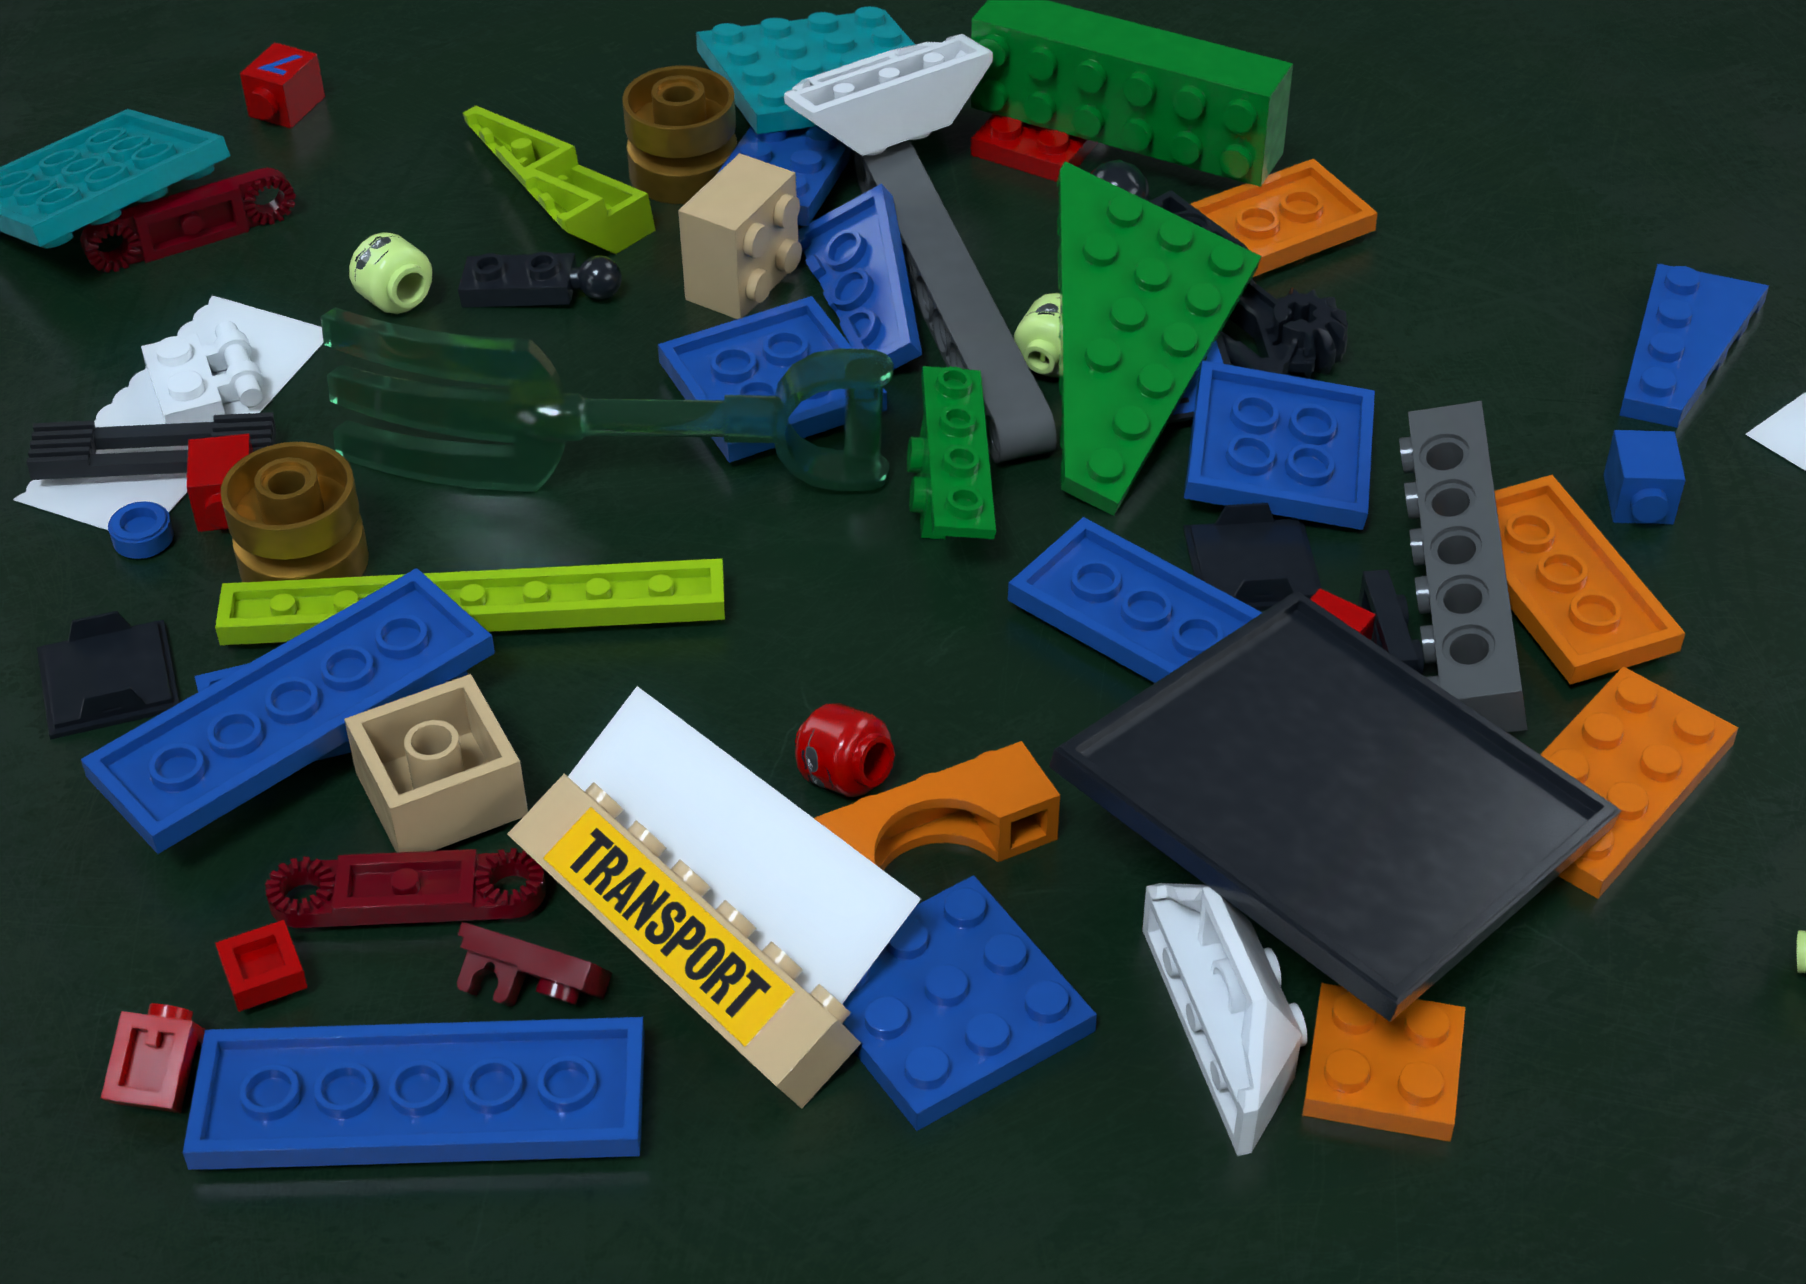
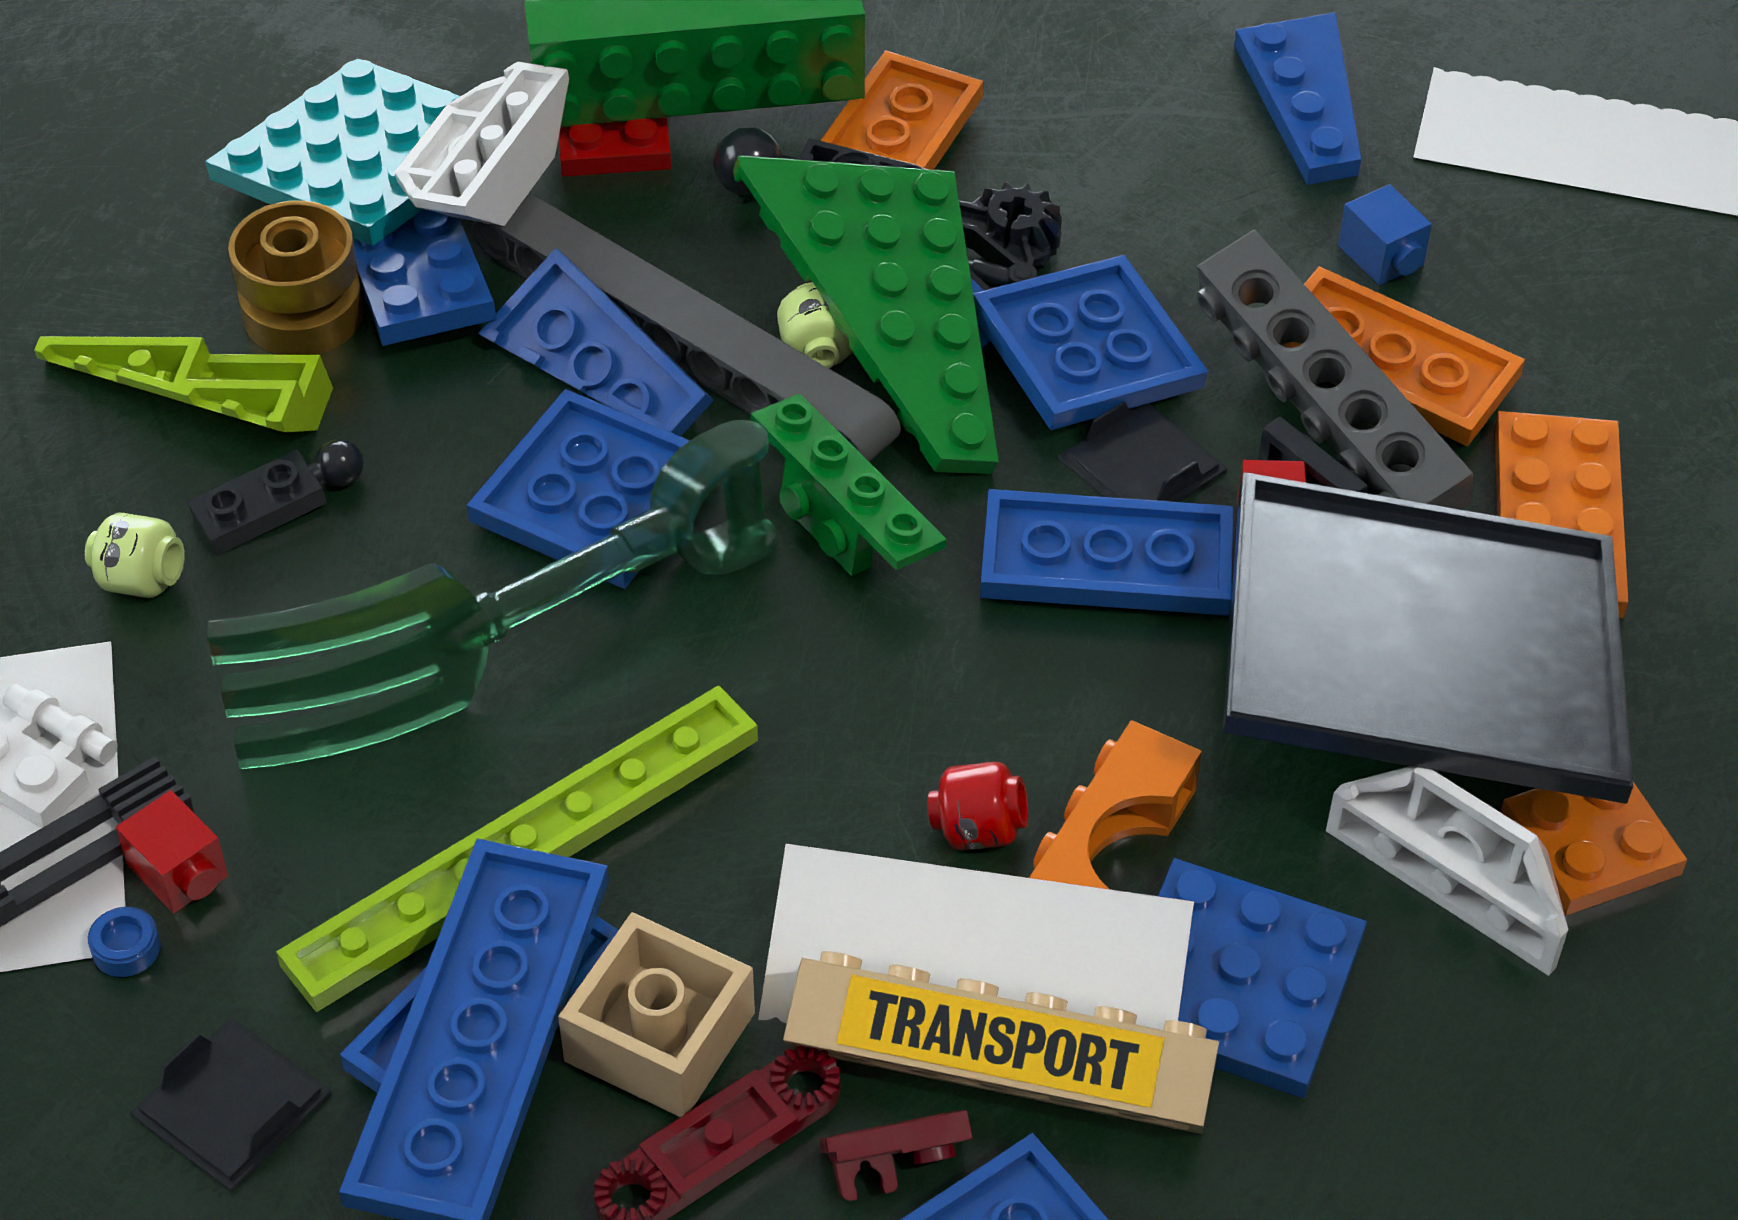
camera: 35 degrees left, 5 degrees up
(294, 514) = (298, 849): pearl gold wheel -> none
(740, 236) = (461, 359): tan brick -> none

